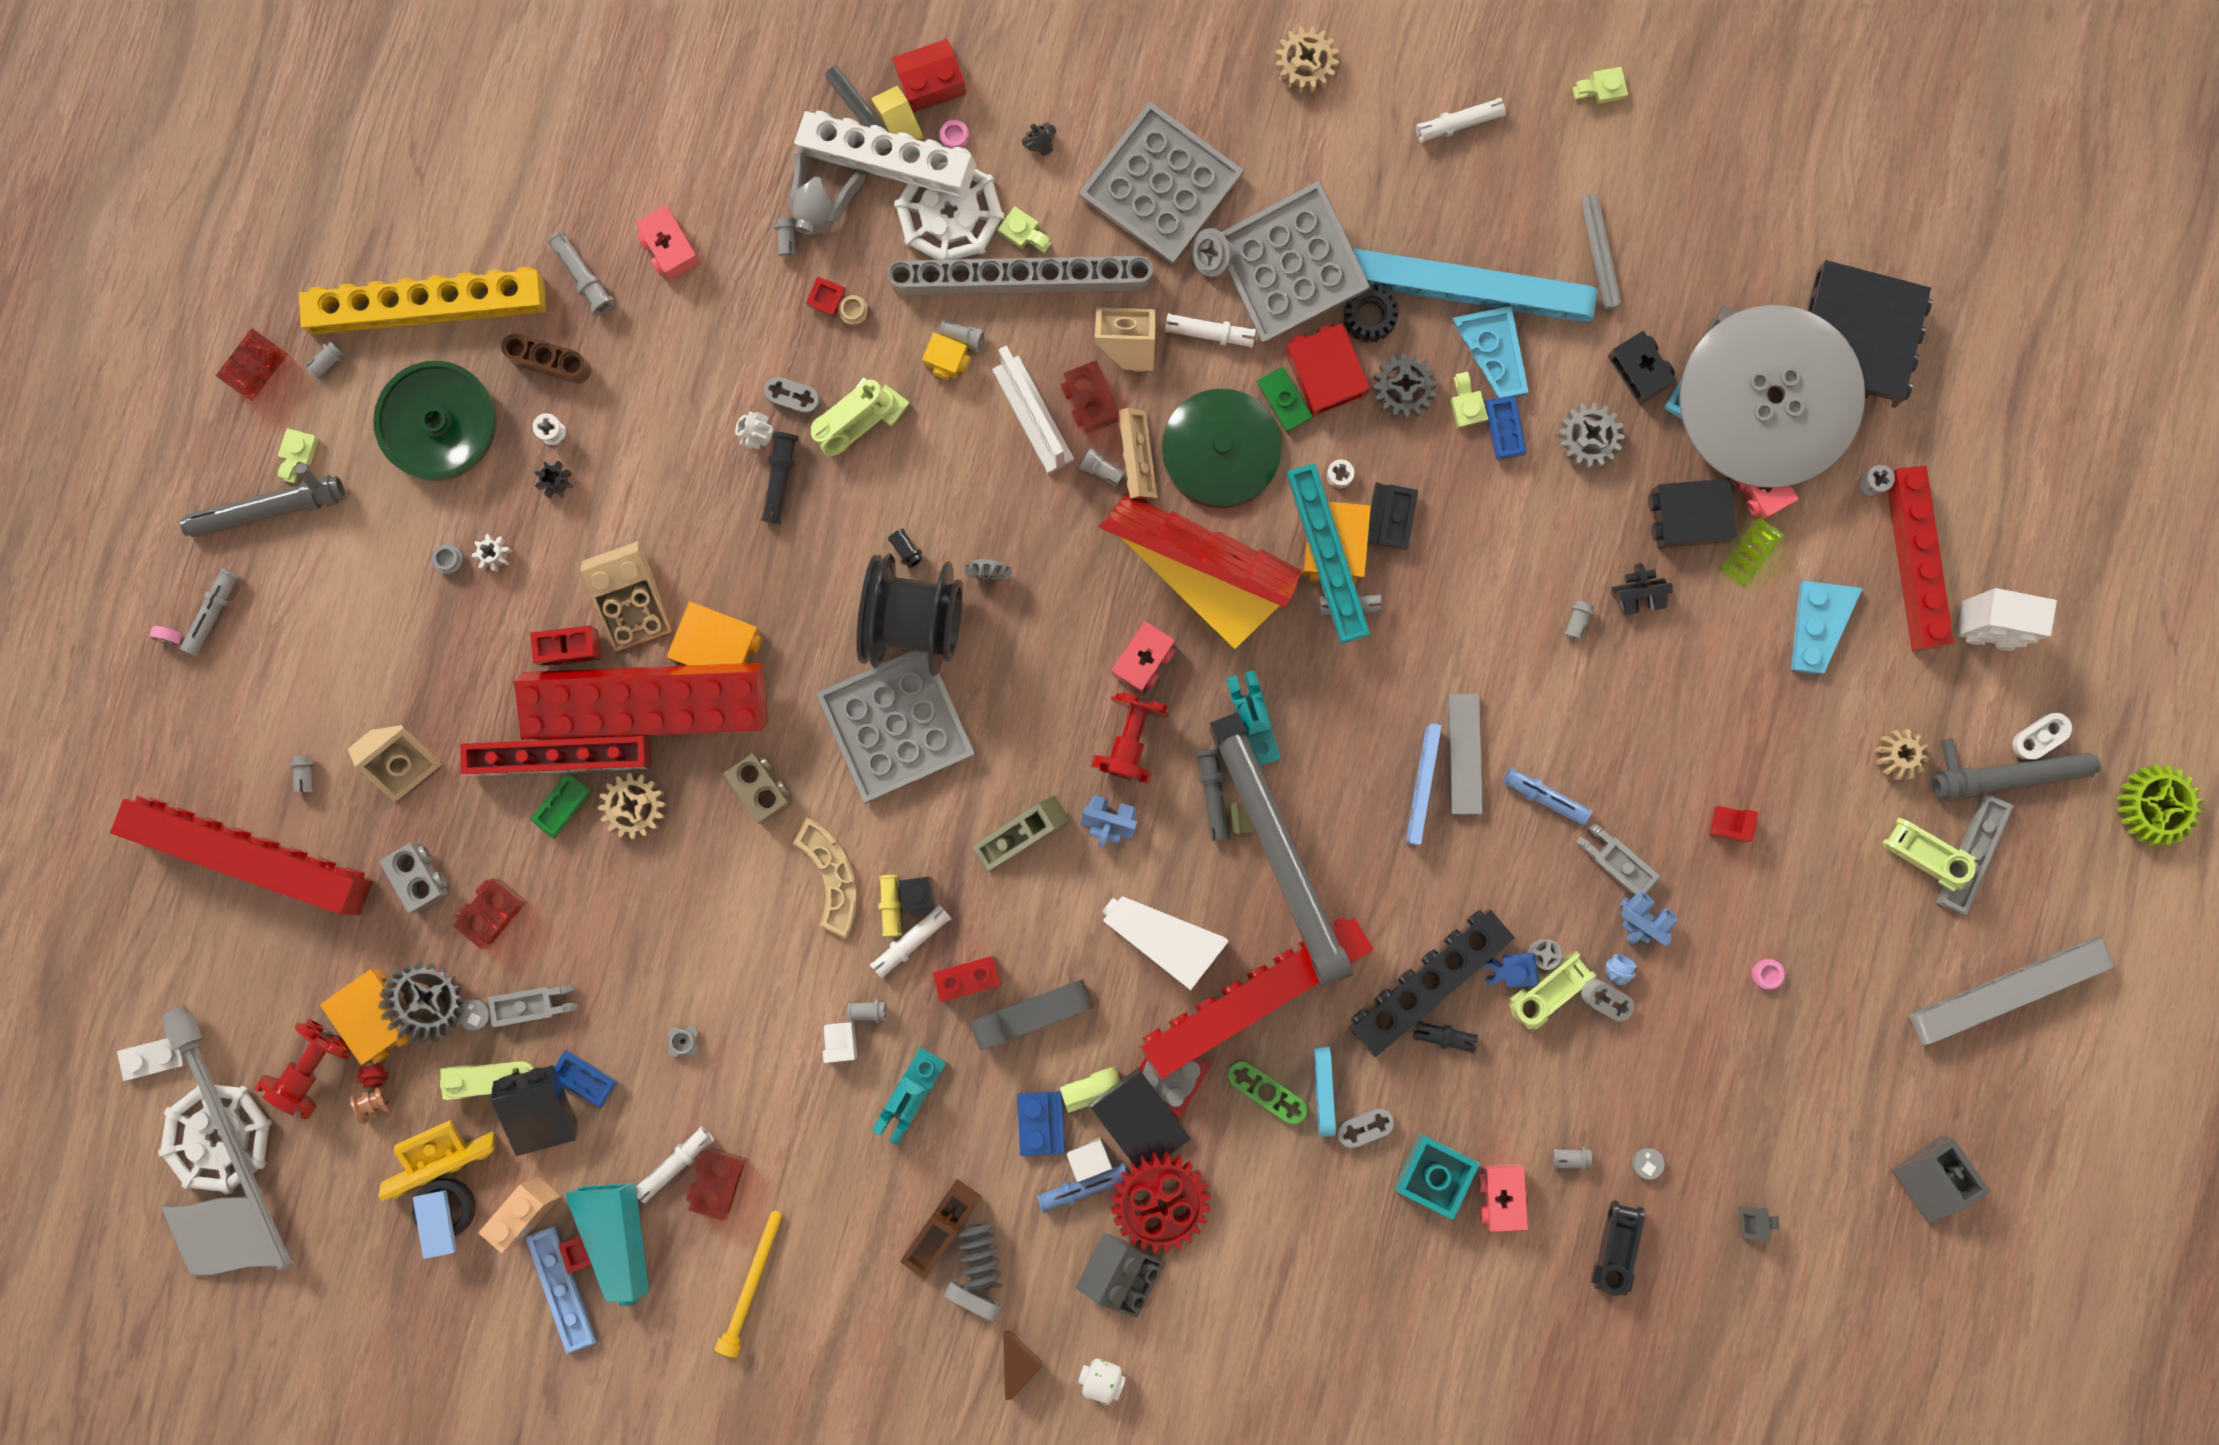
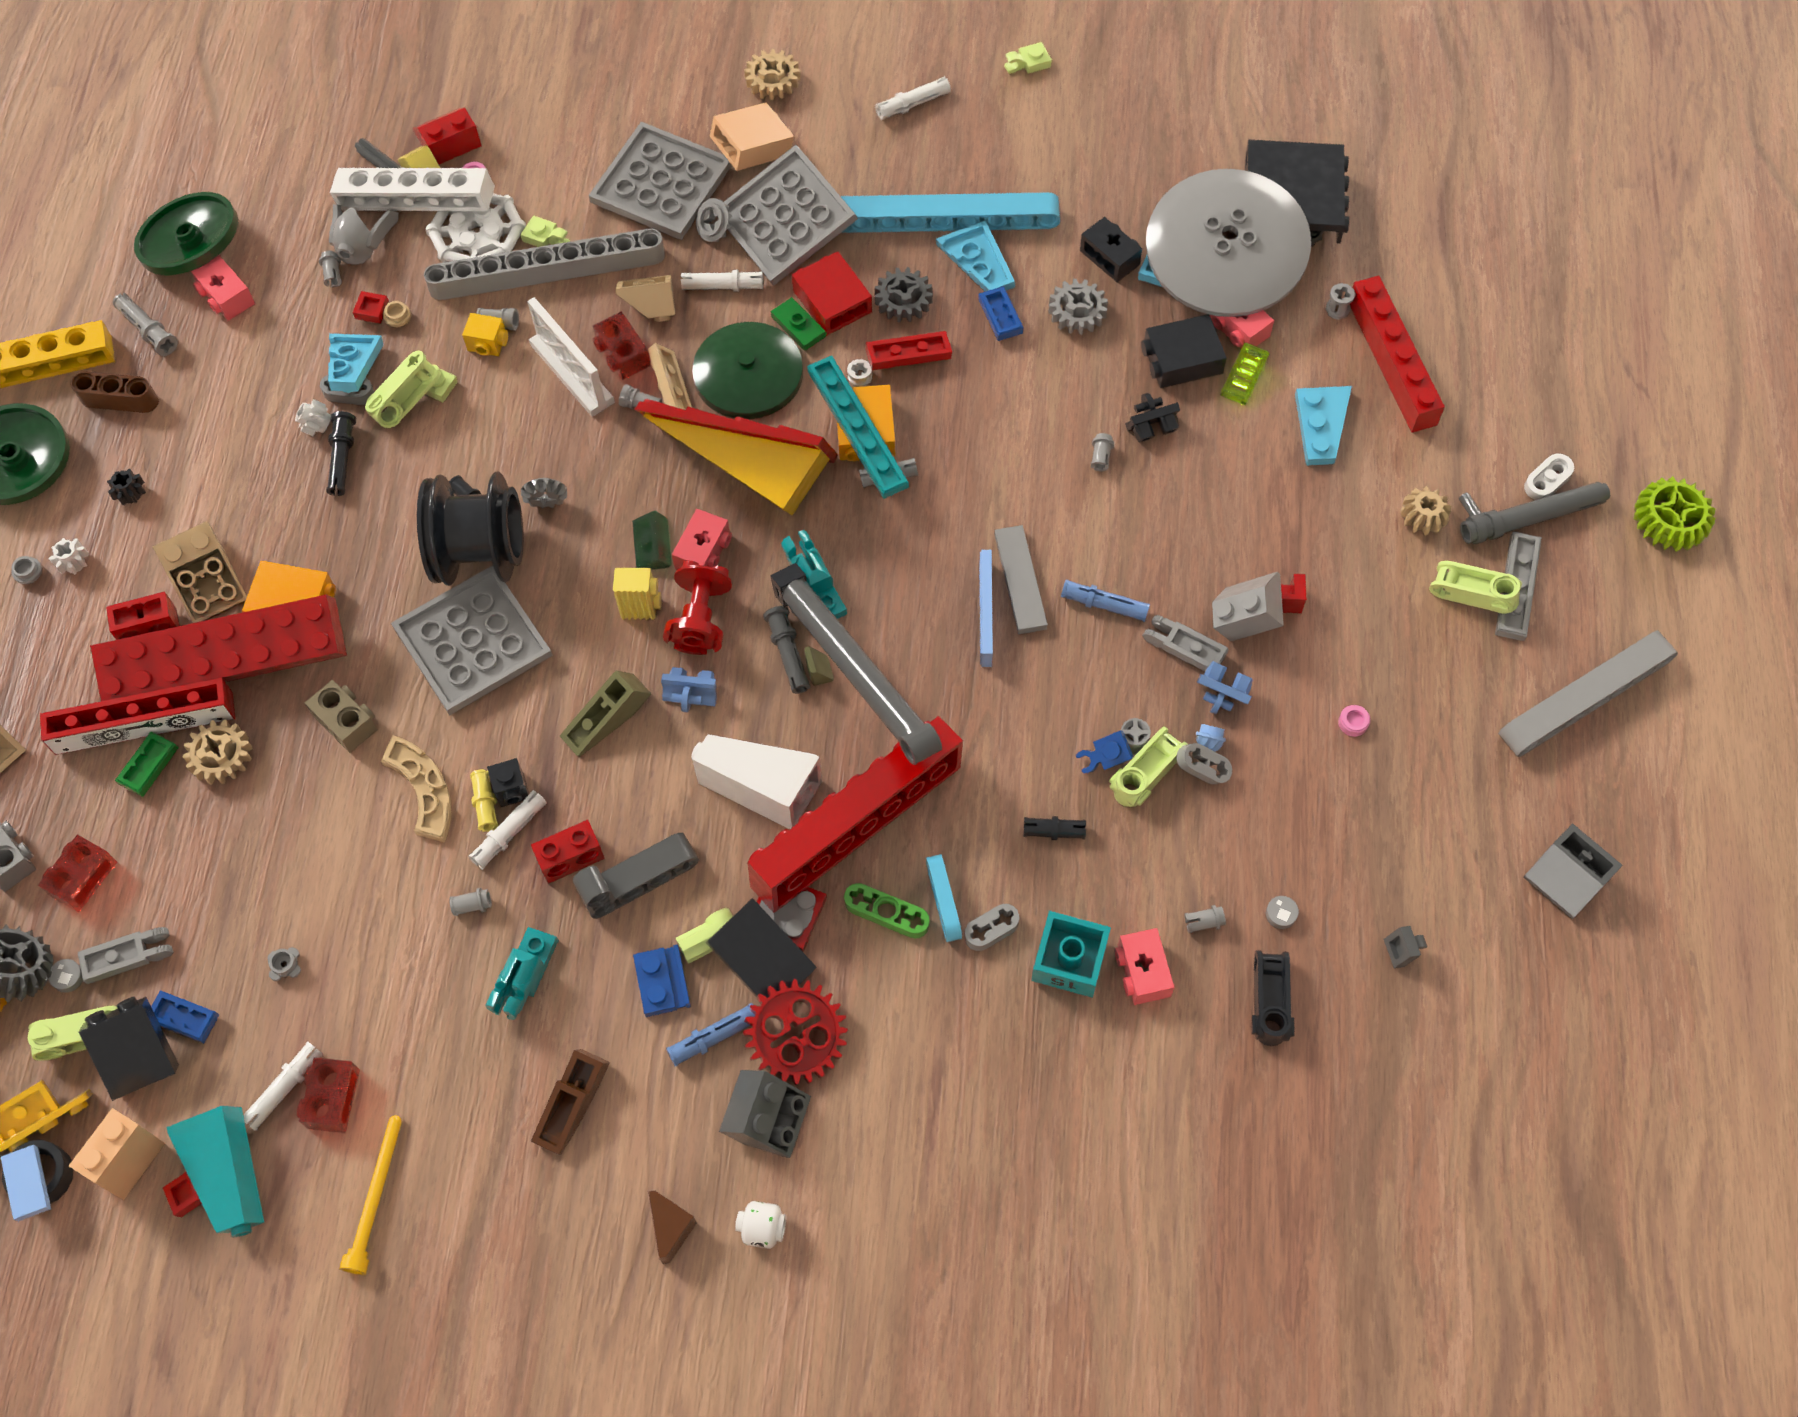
camera: 10 degrees left, 20 degrees down
(555, 435) = (114, 445): white bush -> none
(561, 1291) = (169, 1240): light blue tile -> none
(632, 168) = (186, 233): none -> dark green dish
(800, 366) = (351, 360): none -> medium azure wing
(840, 1042) = (446, 937): white panel -> none
(973, 1301) = (613, 1167): light grey beam -> none
(979, 1257) = (611, 1120): dark grey piece -> none
(1040, 138) = (550, 163): black piece -> none
(1070, 709) = (636, 593): none -> light yellow brick
(1089, 1160) = (715, 1001): white panel -> none
(1092, 640) = (652, 541): none -> clear green slope
(1271, 147) = (751, 136): none -> light nougat brick
(1379, 329) = (863, 234): black tyre -> none
(1391, 515) = (912, 396): black plate -> none
(1398, 459) = (908, 350): none -> red plate
(1467, 406) = (963, 303): yellowish green plate -> none
(1495, 938) = (985, 838): black brick -> none
(1601, 252) = (1055, 174): light grey axle -> none
(1692, 835) = (1249, 607): none -> light grey slope
(2006, 619) = (1484, 376): white brick -> none

